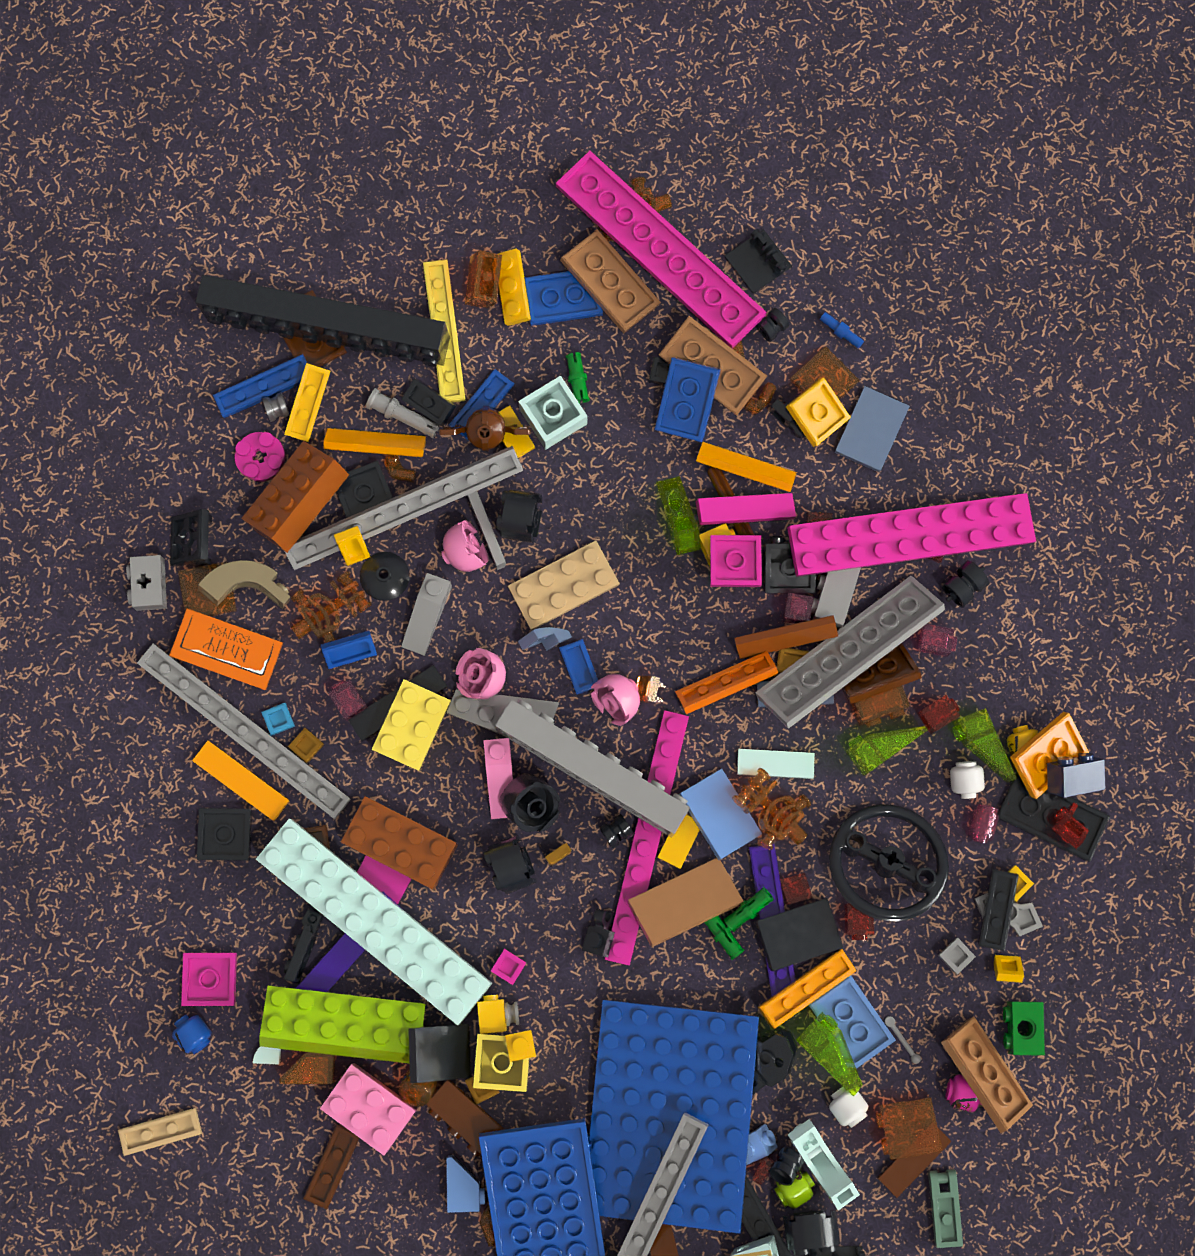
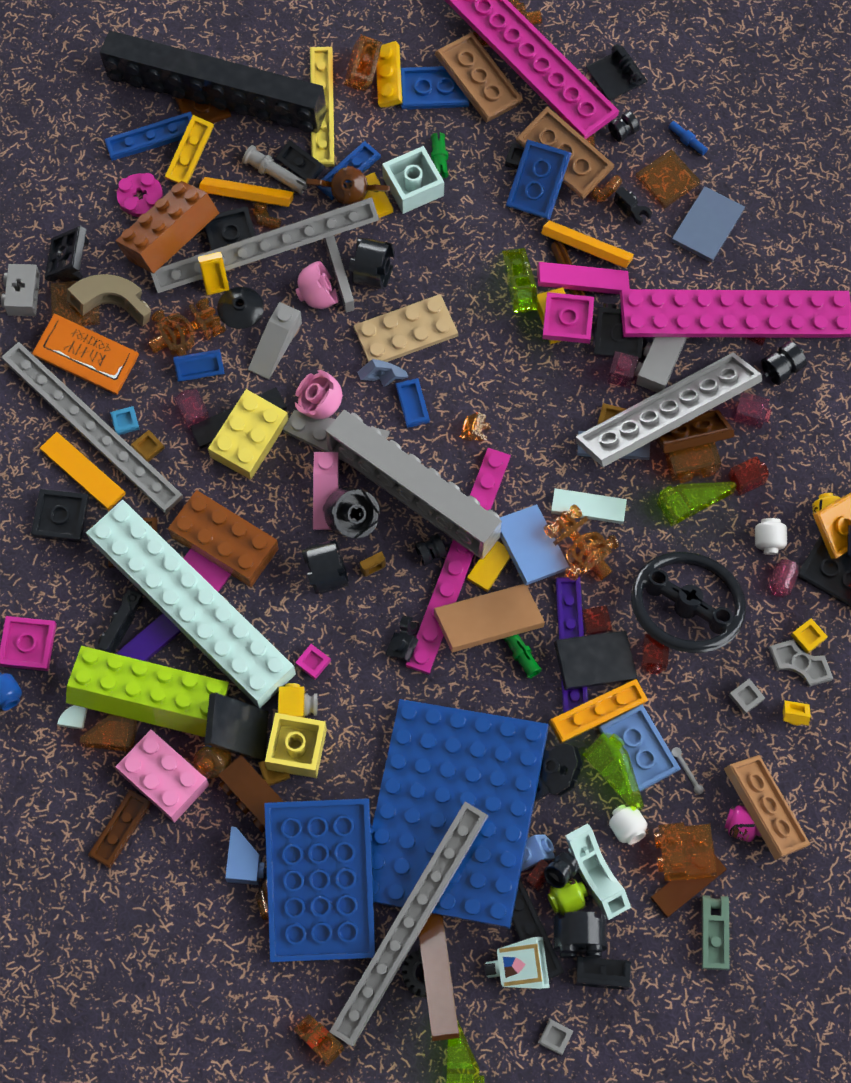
camera: 10 degrees right, 10 degrees down
(275, 407) = (160, 153): flat silver wheel -> none
(520, 1045) = (315, 726): yellow plate -> none
(616, 693) = (442, 425): bright pink cylinder -> none
(726, 682) = (549, 428): orange plate -> none
(748, 909) = (549, 632): green pin -> none
(786, 637) = (610, 391): dark orange tile -> none
(818, 412) = (658, 201): yellow tile -> none
(982, 740) = (788, 503): clear neon green slope -> none
(998, 909) = (790, 656): black tile -> none
(1033, 1041) = (815, 757): green brick -> none

